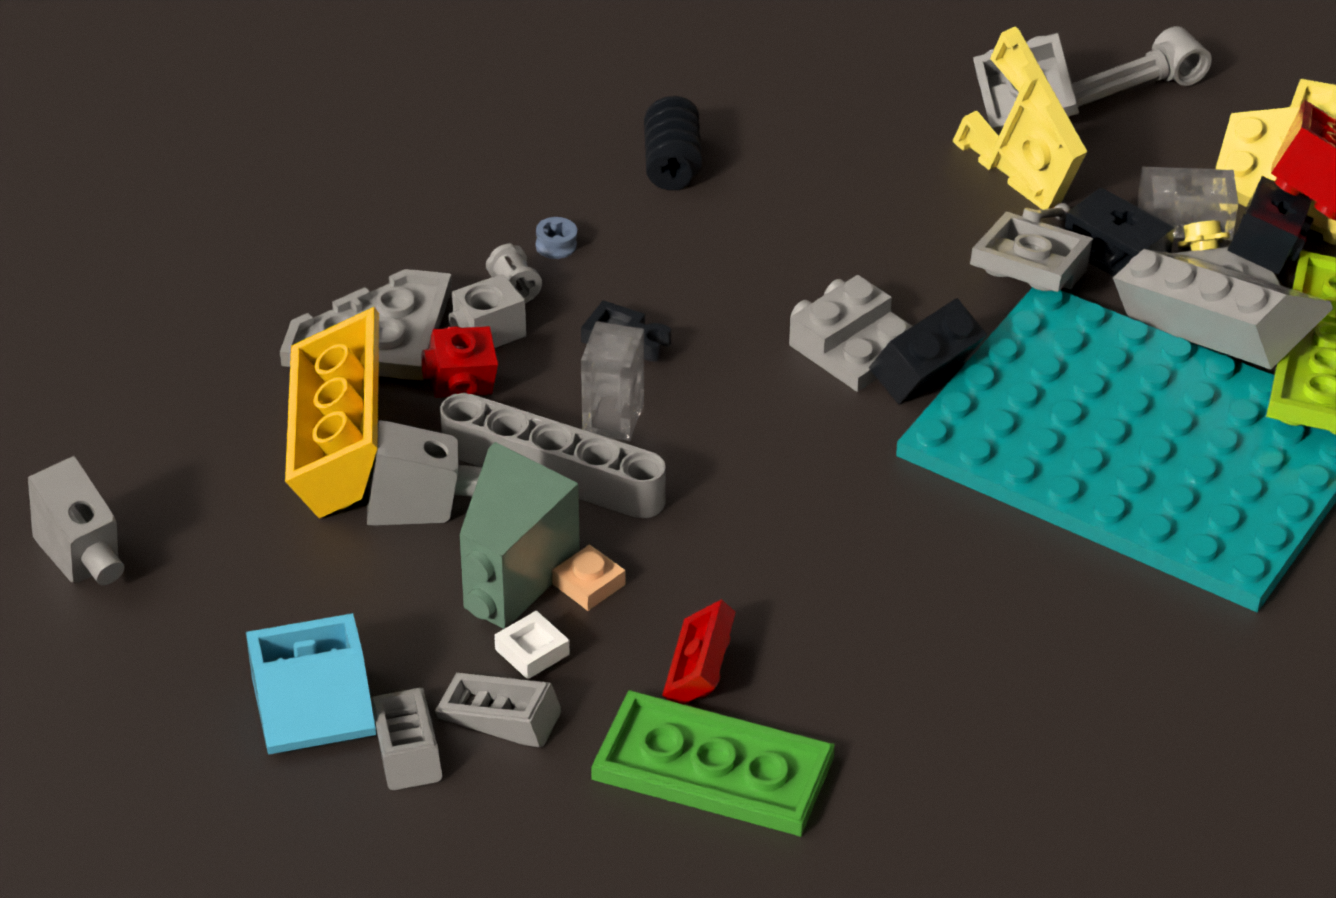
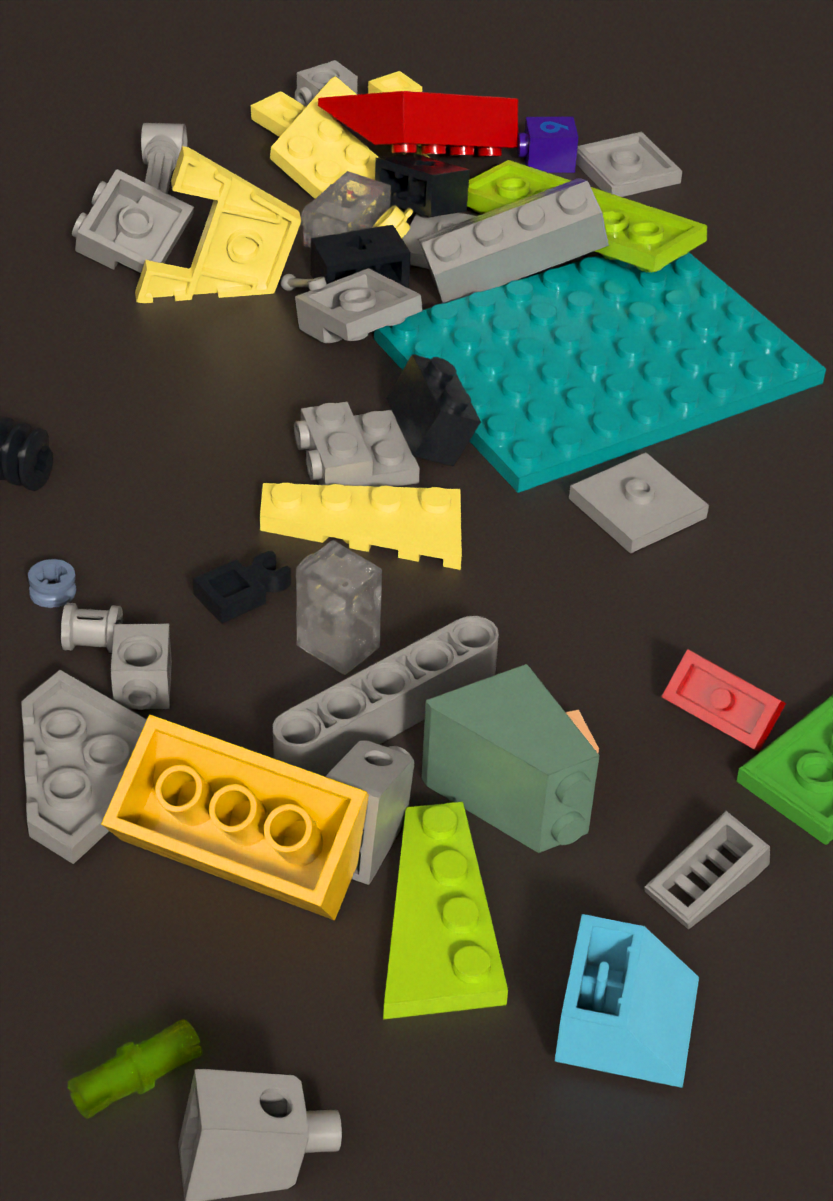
camera: 65 degrees left, 0 degrees up
(116, 463) = (134, 1068): none -> clear neon green pin
(354, 568) = (442, 926): none -> lime wing
(407, 741) = (738, 943): light grey slope -> none
(460, 361) = (213, 702): red brick -> none
(532, 644) = (643, 813): white plate -> none
(781, 384) = (383, 516): none -> light yellow wing
(938, 531) = (638, 502): none -> light grey plate

